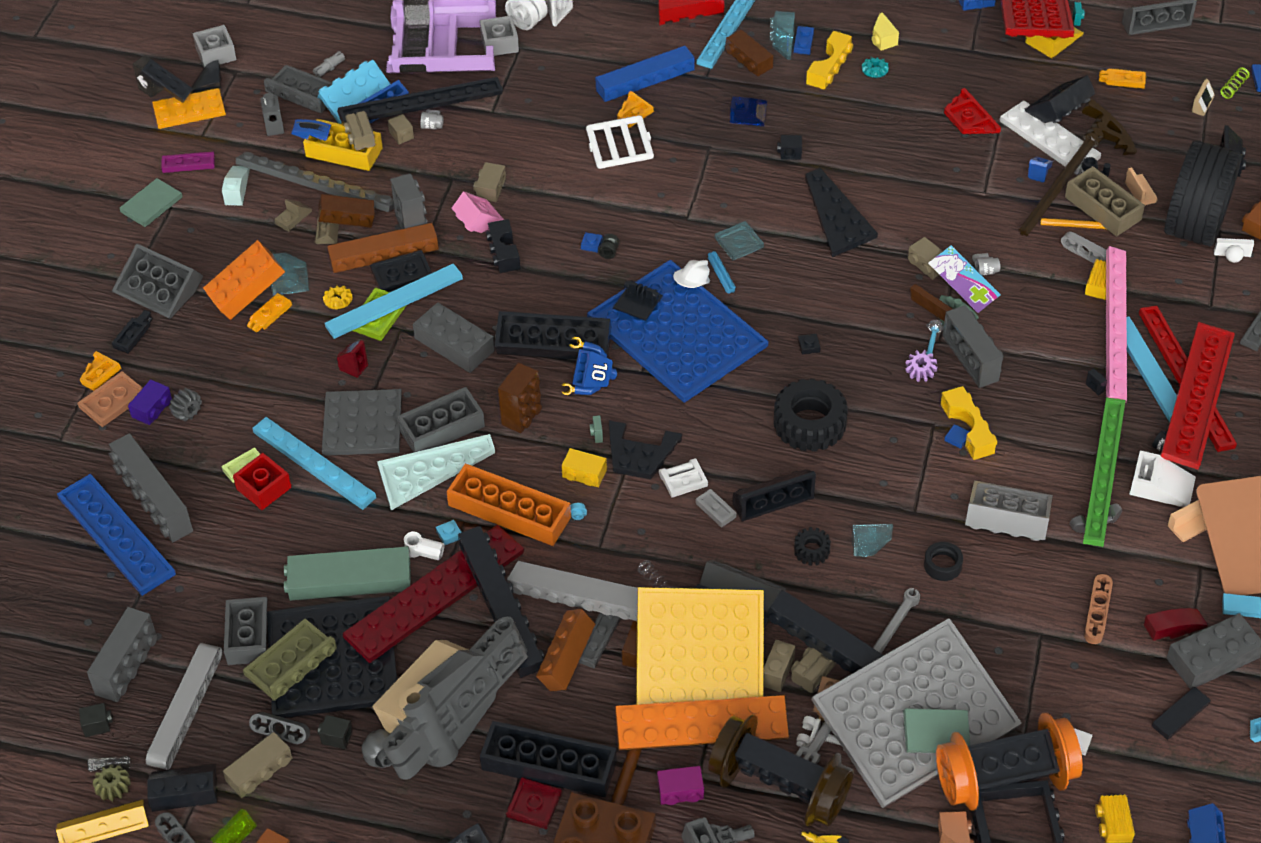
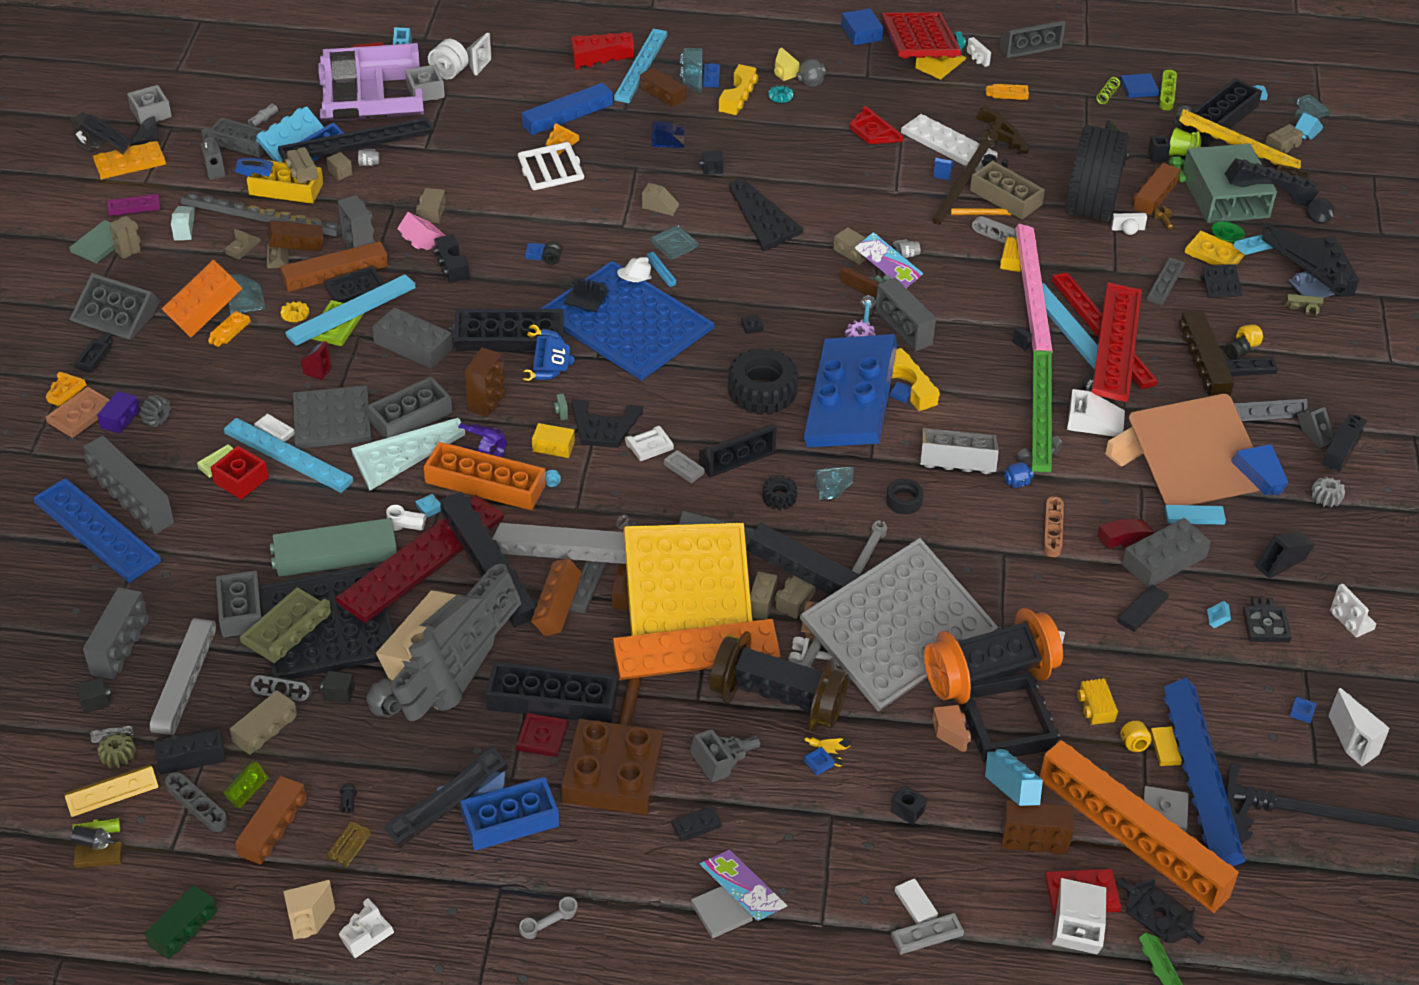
camera: 10 degrees left, 5 degrees down
(174, 201) = (125, 236): none -> dark tan brick
(303, 431) = (275, 427): none -> white tile
(518, 462) = (490, 438): none -> dark purple piece
(680, 785) = (683, 706): magenta brick -> none
(728, 189) = (659, 200): none -> dark tan slope
(902, 433) = (851, 391): none -> blue plate
(911, 43) = (811, 72): none -> dark grey plant
(932, 727) = (912, 634): sand green tile -> none
(1062, 100) = (956, 110): black slope -> none
(1068, 545) = (1018, 475): none -> blue head
(1097, 27) = (978, 52): none -> white plate
(1140, 188) = (1036, 177): light nougat panel -> none
(1203, 98) = (1082, 104): slope -> none

